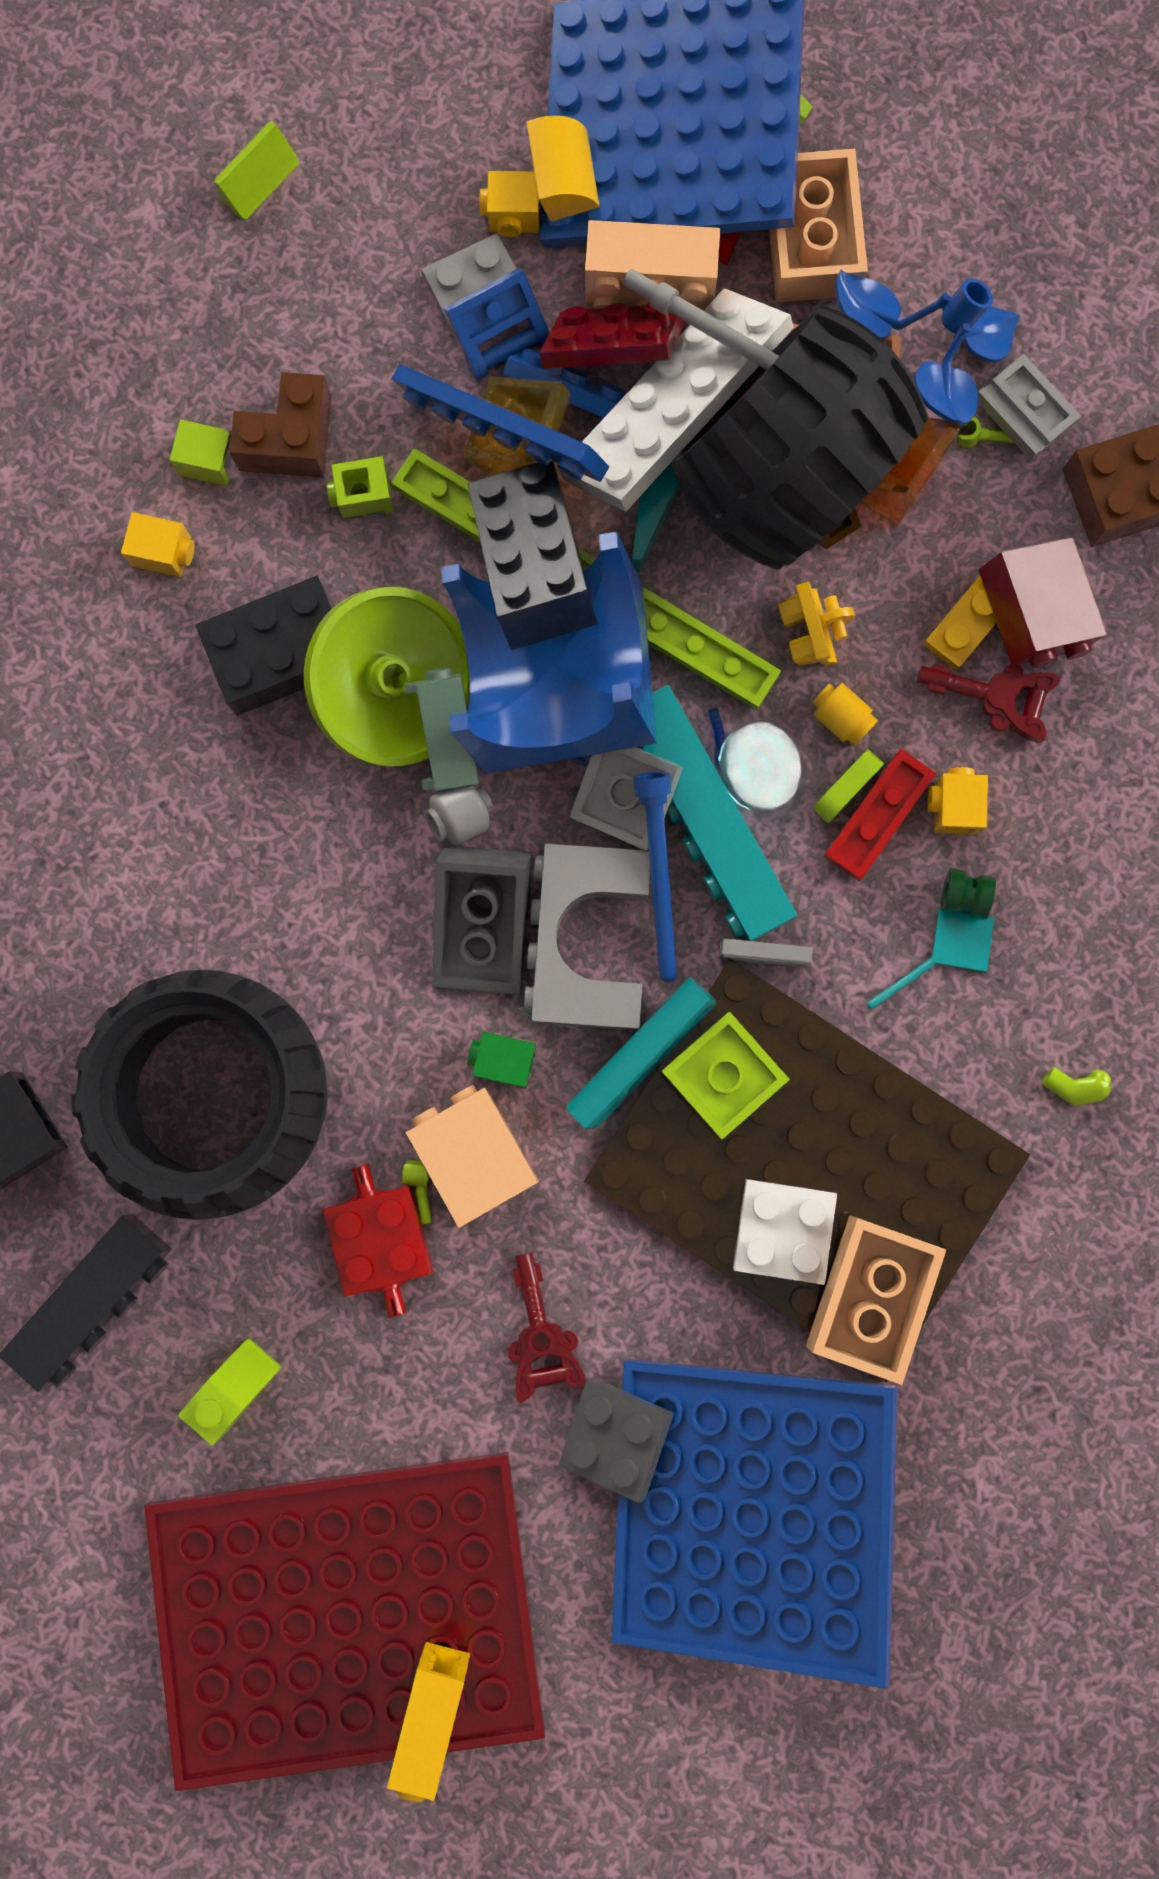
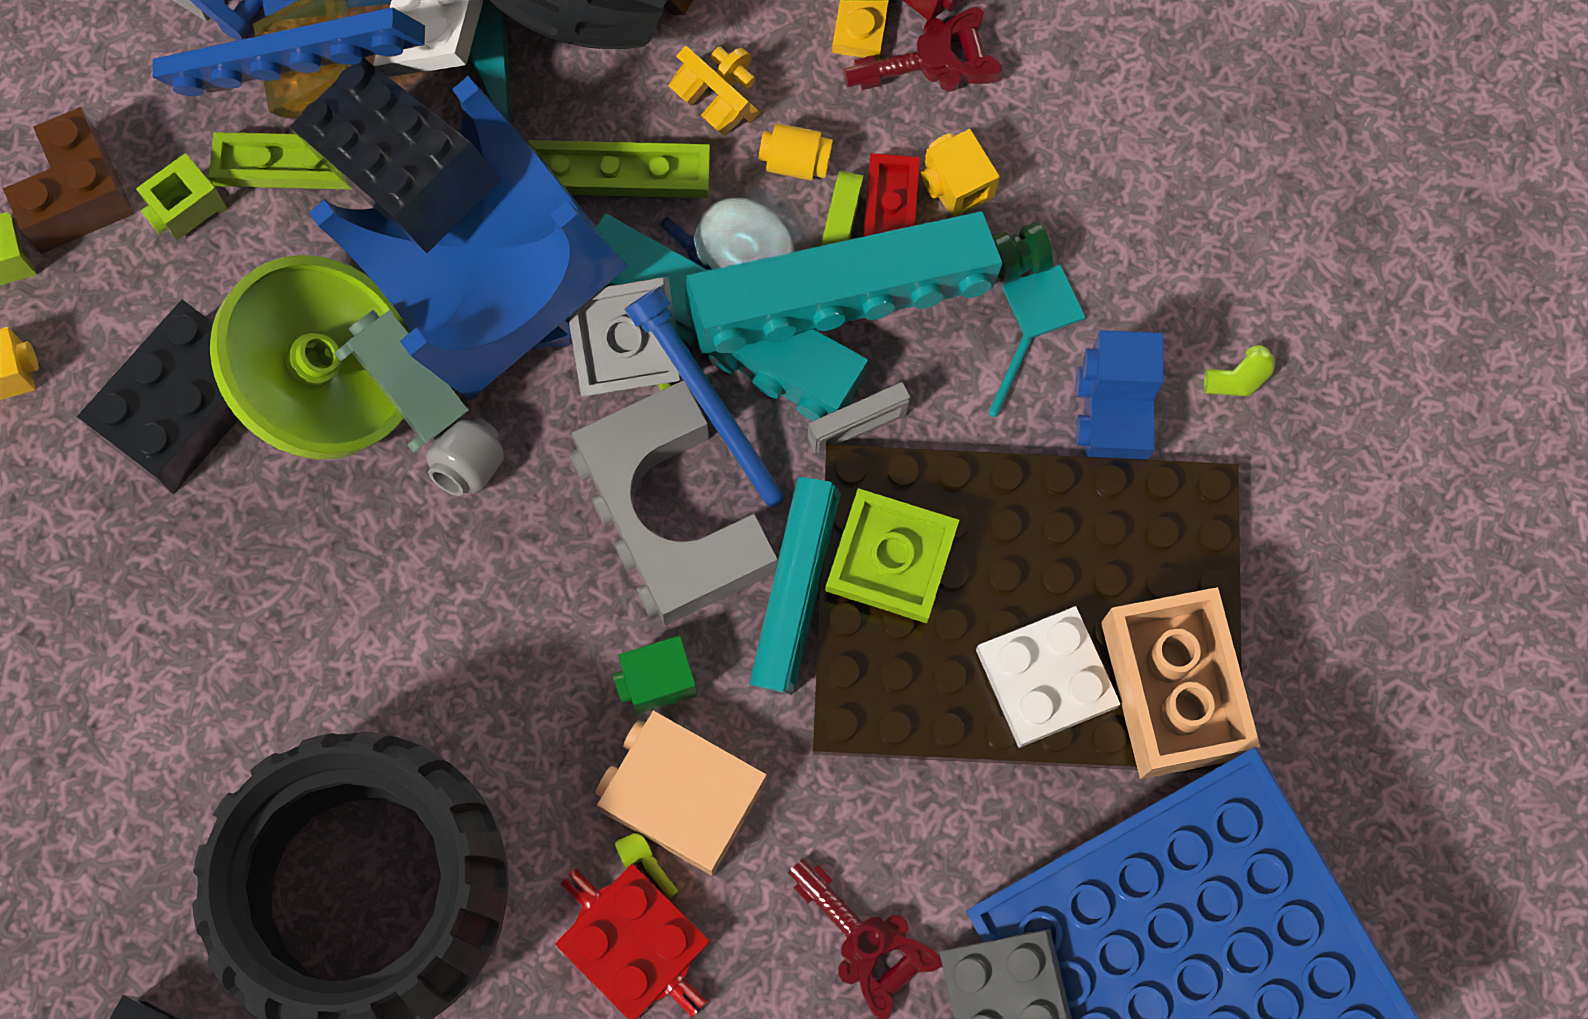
camera: 35 degrees left, 10 degrees down
(480, 918) = (550, 550): dark grey slope -> none
(813, 846) = (841, 283): none -> teal brick
(974, 1049) = (1119, 393): none -> blue brick

